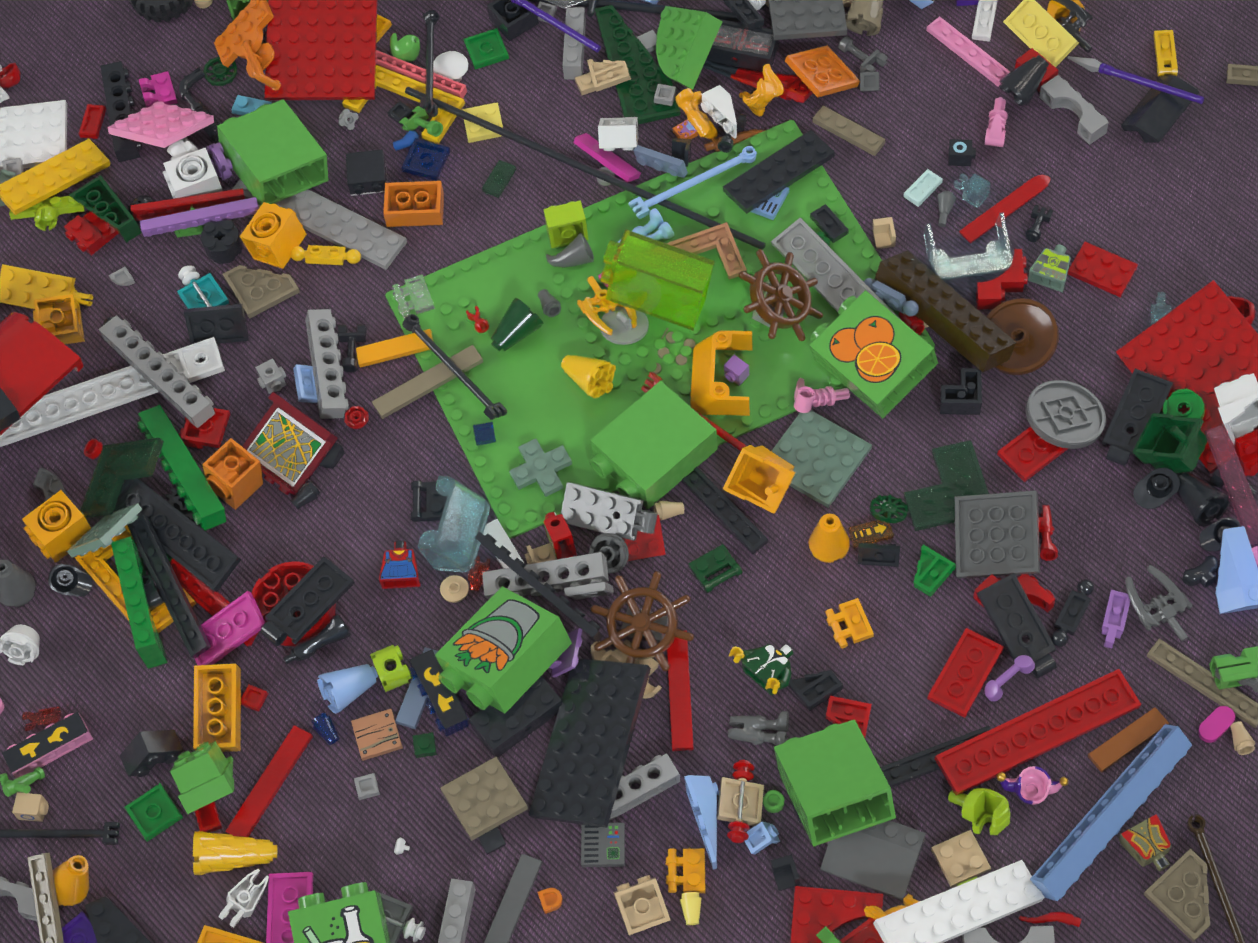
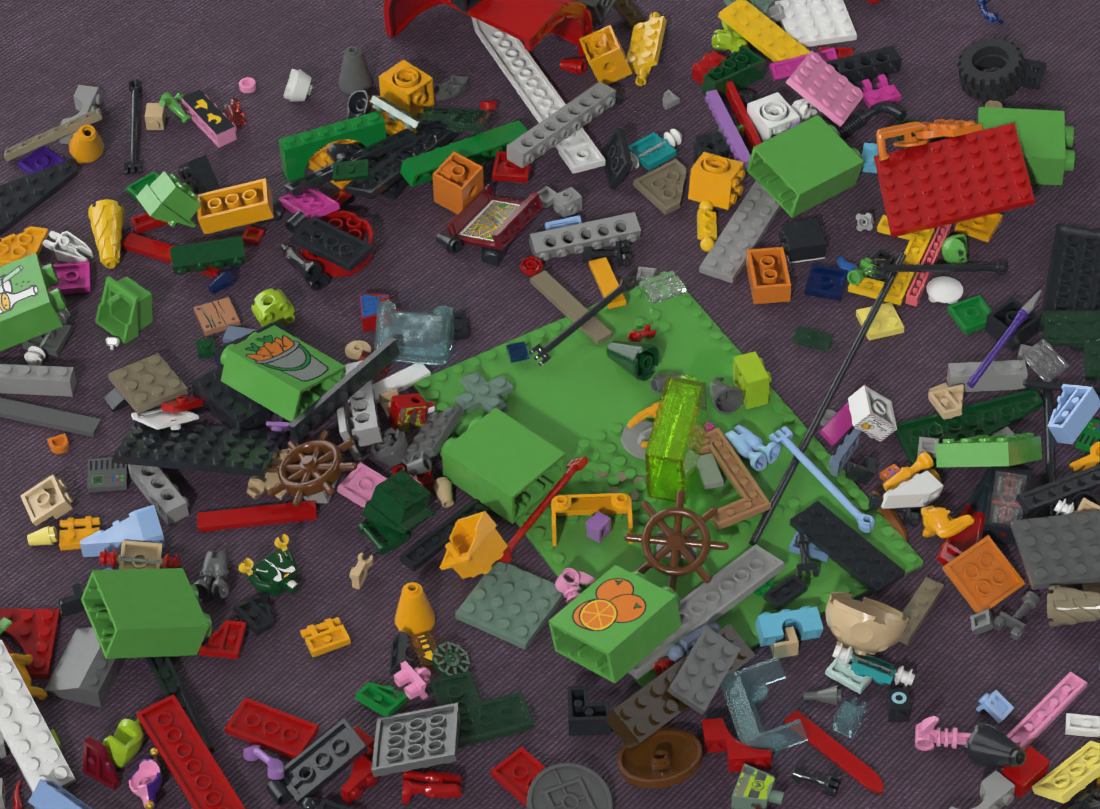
camera: 80 degrees right, 15 degrees down
(104, 148) = (785, 68): none -> dark pink tile
(193, 579) = (351, 170): none -> dark green plate
(253, 398) = (547, 196): none -> light grey plate
(293, 735) = (208, 255): none -> dark green wedge
(346, 685) = (253, 279): light blue cone -> none
(364, 826) = (124, 309): none -> bright green piece
(366, 786) = (169, 316): light grey tile -> none
(384, 316) = (644, 272): none -> light grey tile
(516, 763) = (182, 404): none -> red plate
(535, 778) = (160, 419): none -> white container
(590, 374) = (580, 415): yellow cone -> none
(643, 576) = (360, 484): none -> bright pink plate
(693, 545) = (399, 503): none -> dark green piece
(769, 588) = (359, 572): none -> tan plate
(800, 204) = (802, 541): none -> black hinge
(870, 237) = (805, 622): none -> medium azure arch
(880, 158) = (865, 624): none -> tan rock
(915, 537) = (415, 678): none -> bright pink hips
(923, 163) = (873, 667): none -> plate
(938, 283) = (703, 670): none -> dark grey plate
(960, 858) = (77, 729): tan plate -> none
(962, 83) = (995, 705): none -> light blue bracket
(1010, 832) = (98, 763): none -> dark red wing

